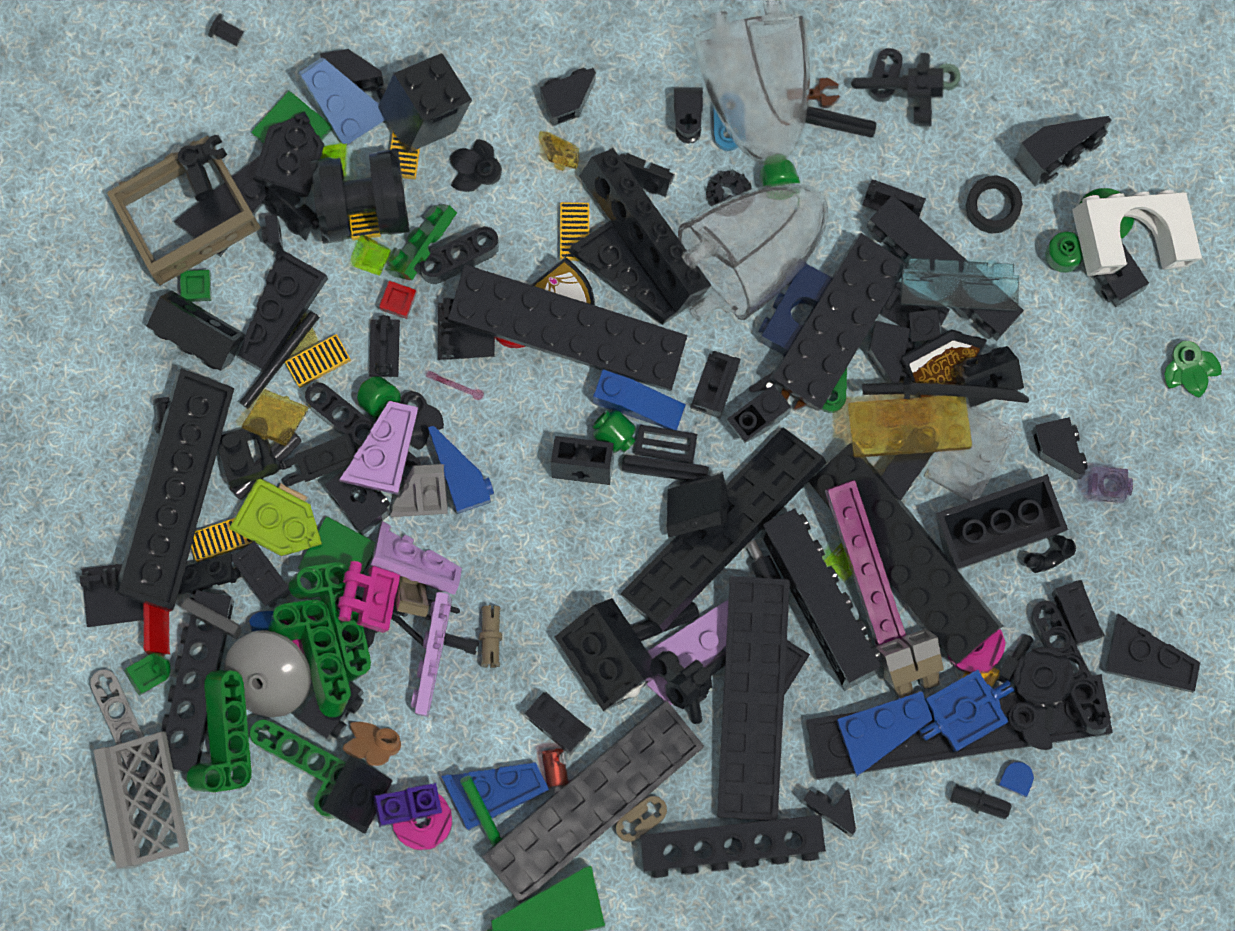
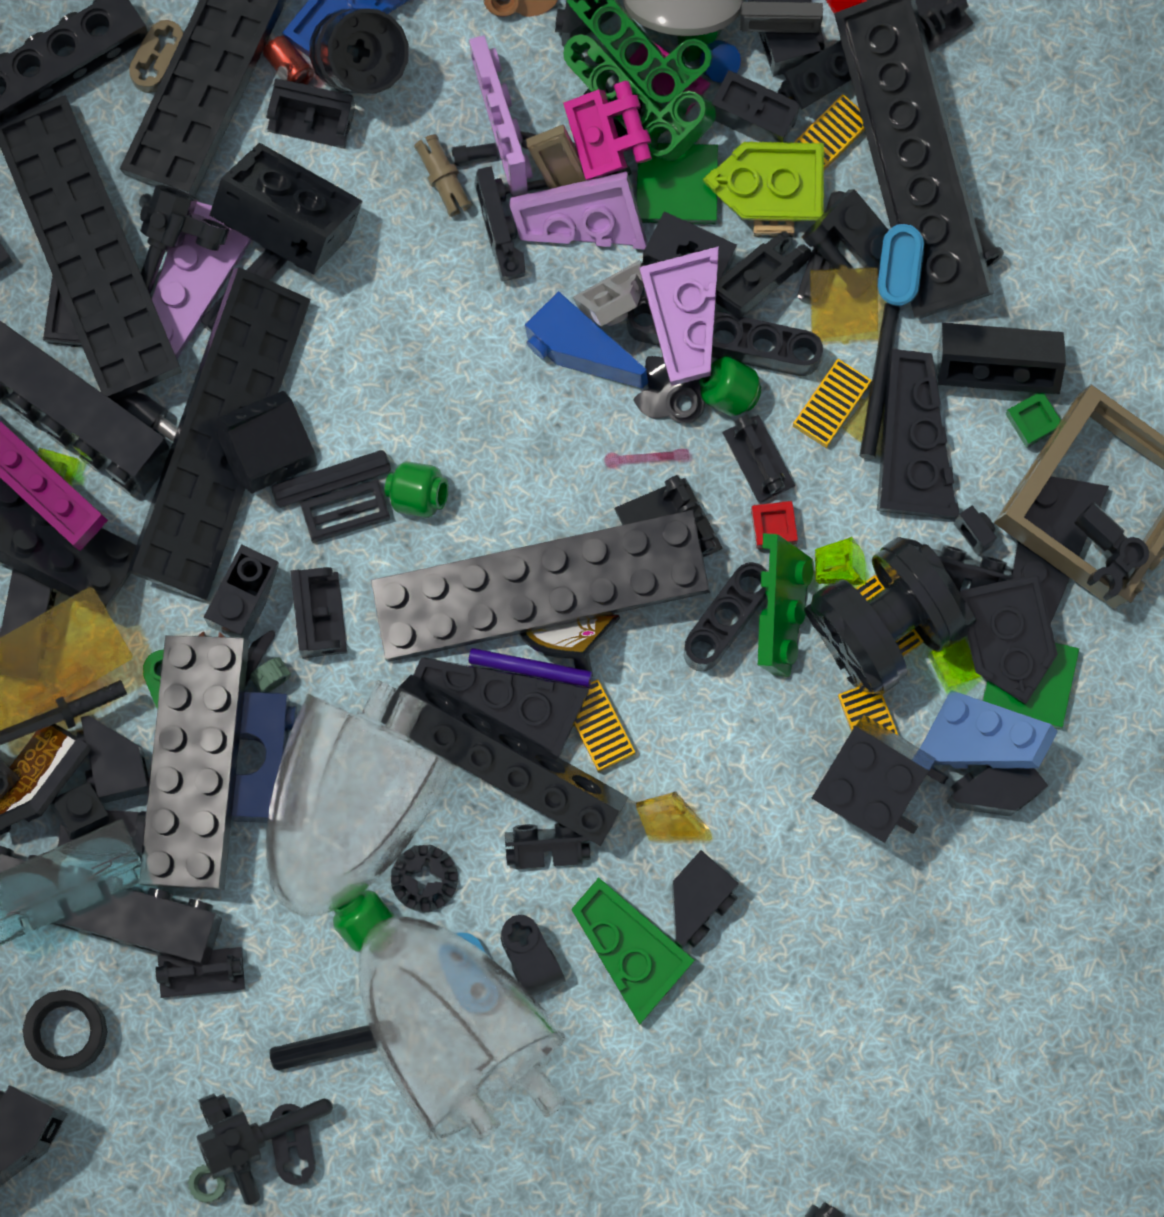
camera: 155 degrees right, 0 degrees up
(225, 420) = (901, 265): none -> dark azure tile
(471, 165) = (775, 744): black plate -> none
(472, 581) = (498, 226): none -> black hinge
(505, 739) = (380, 48): none -> black wheel
(582, 460) = (436, 429): black brick -> none
(603, 289) = (530, 667): none -> dark purple bar
(624, 88) = (631, 948): none -> green wing
(637, 401) = (406, 542): blue slope -> none
(765, 359) = (270, 675): none -> sand green axle
(818, 95) = (375, 1070): reddish brown bar -> none

